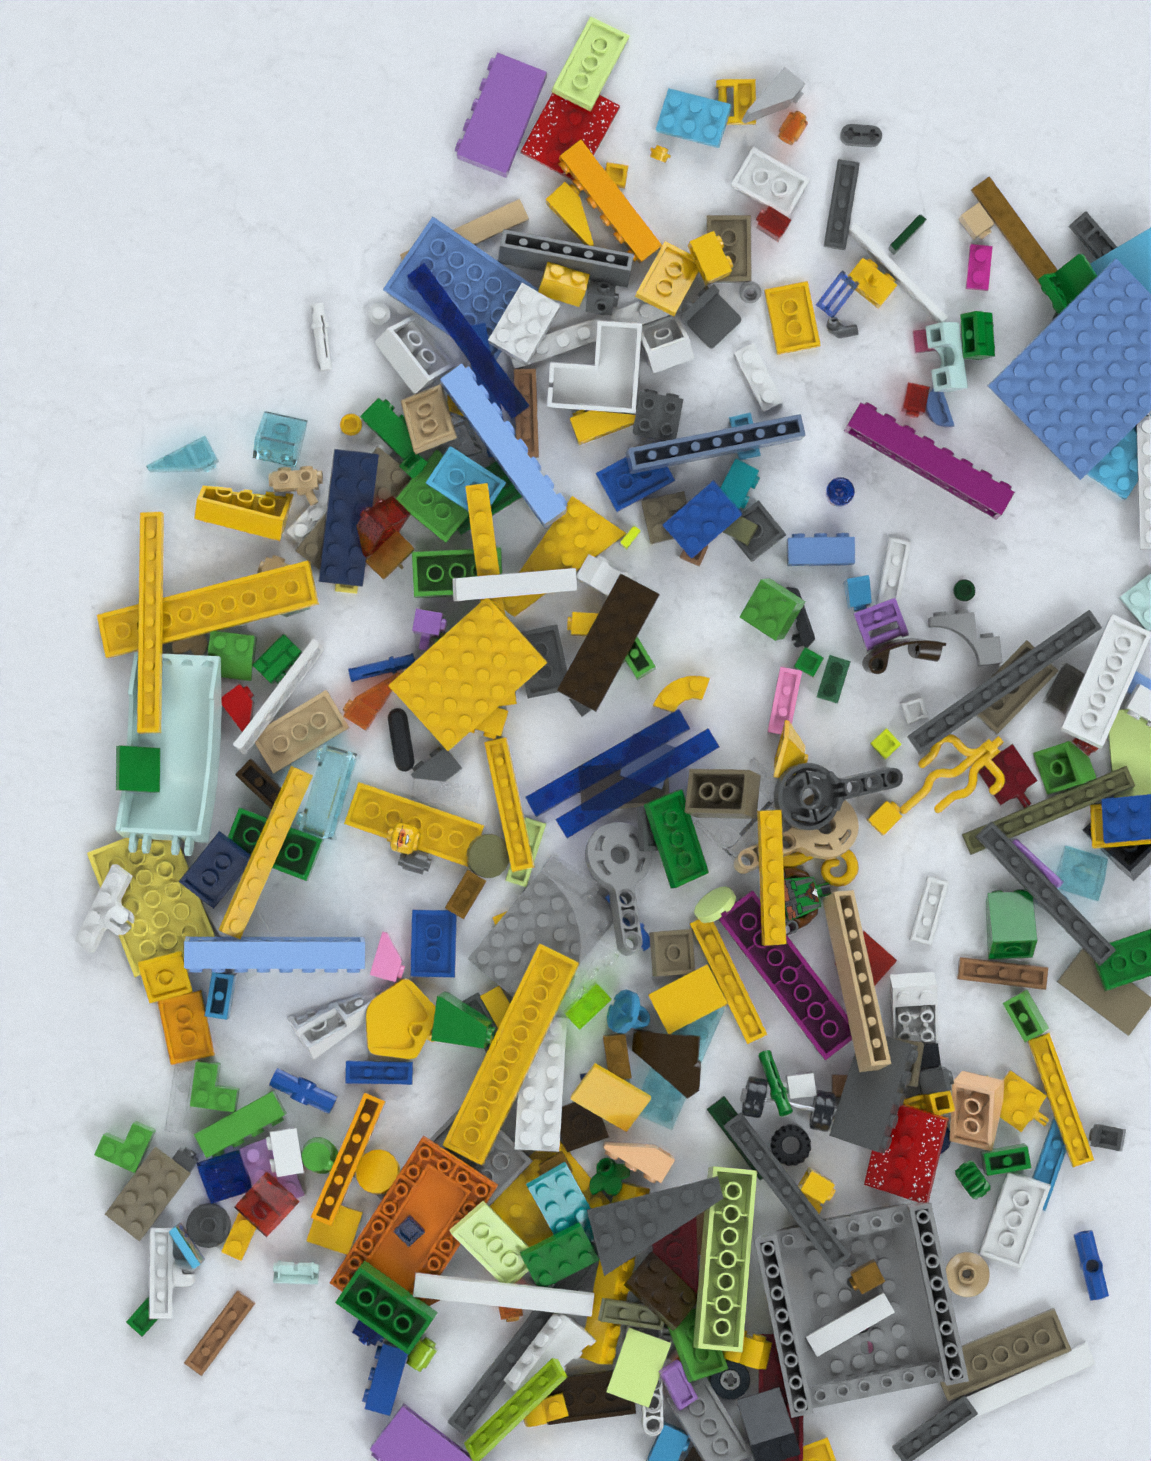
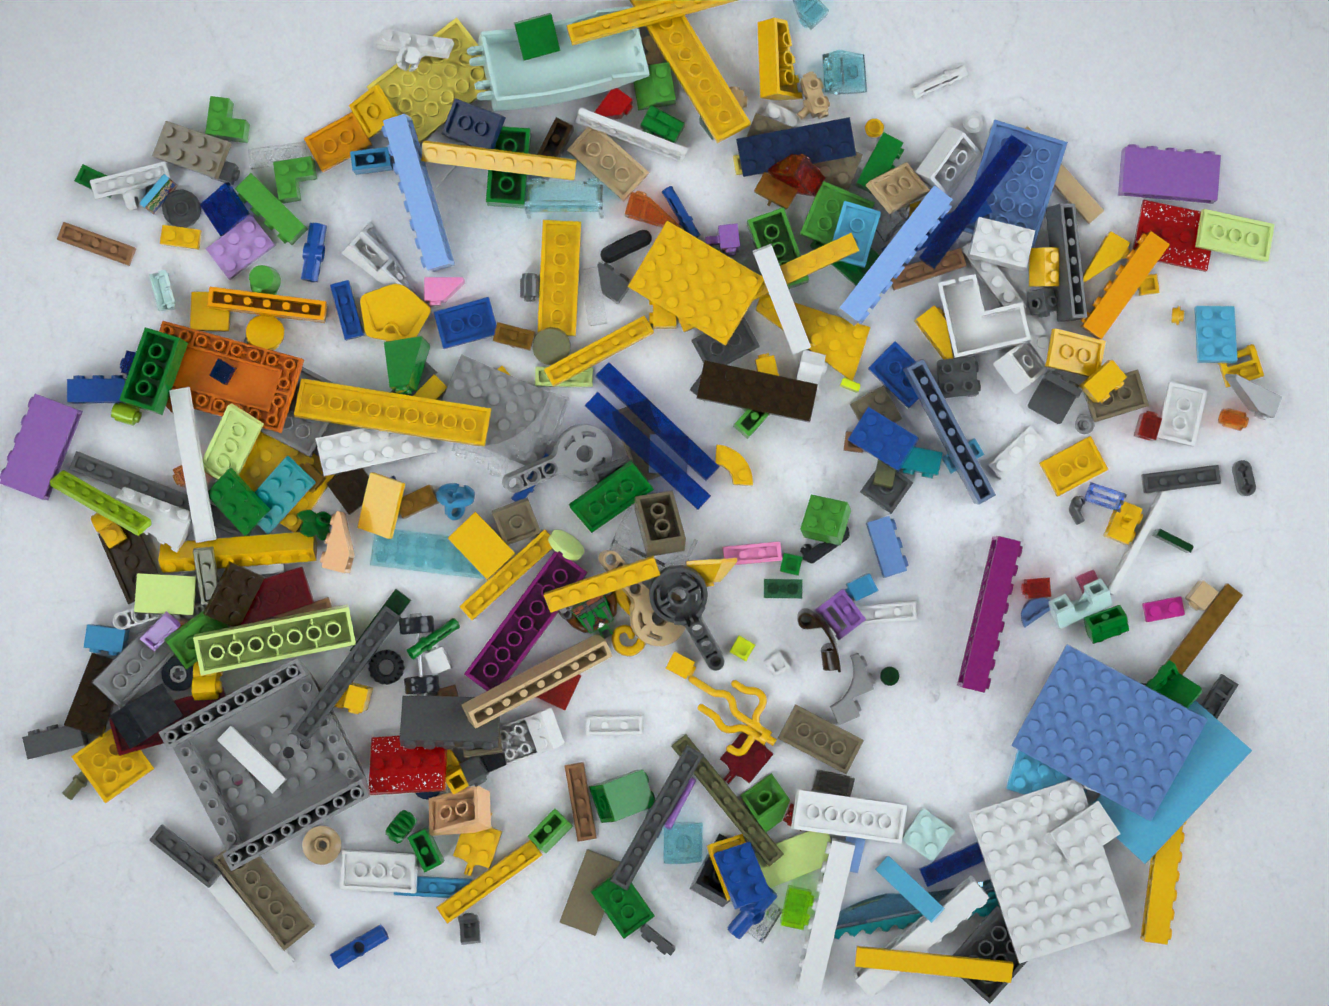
camera: 75 degrees right, 0 degrees up
(266, 1204) = (211, 249): clear red slope -> none
(285, 1151) = (258, 251): white brick -> none
(404, 838) = (544, 271): yellow head -> none
(413, 464) = (856, 187): green plate -> none
(586, 1007) = (452, 464): clear neon green brick -> none
(638, 1222) = (283, 558): dark grey wing -> none
(672, 1057) = (429, 546): dark brown panel -> none
(845, 486) = (947, 545): clear blue head -> none
(866, 1277) = (294, 761): pearl gold brick -> none
(1004, 682) = (823, 731): dark grey plate -> none

